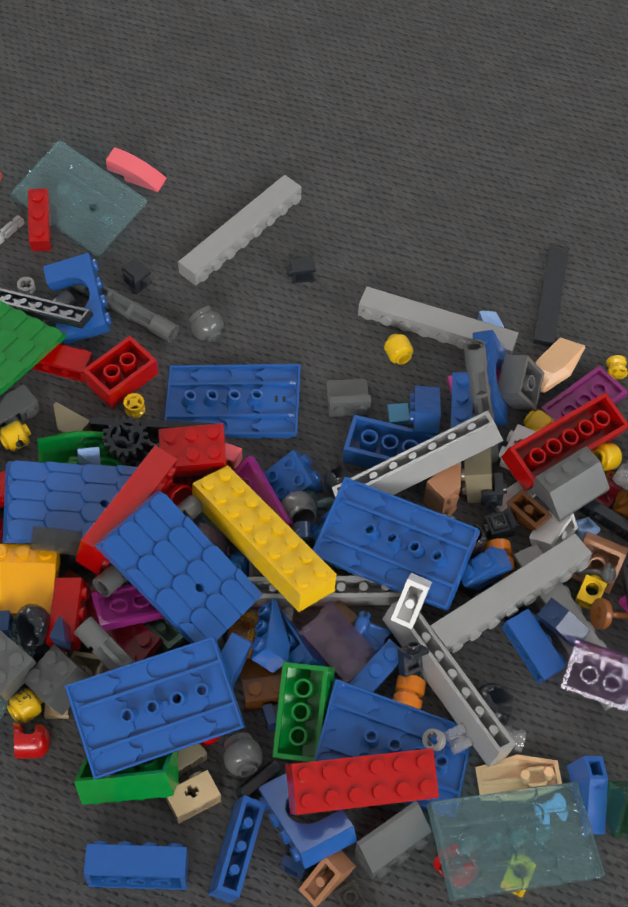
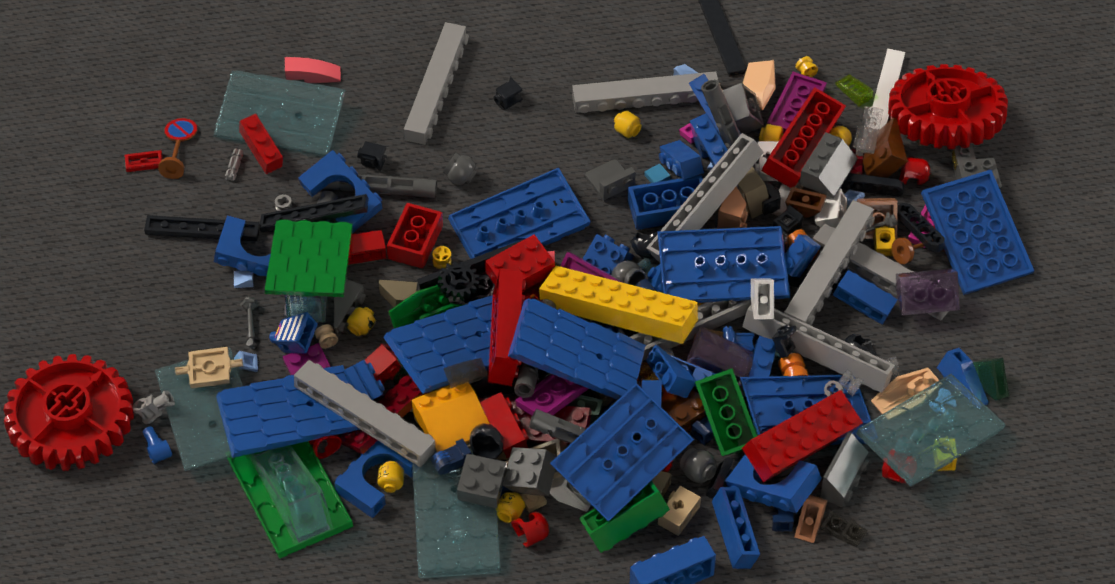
camera: 25 degrees left, 5 degrees down
(61, 634) = (516, 436): dark blue slope -> none
(89, 456) = (438, 306): light blue slope -> none
(562, 622) = (878, 268): dark blue slope -> none

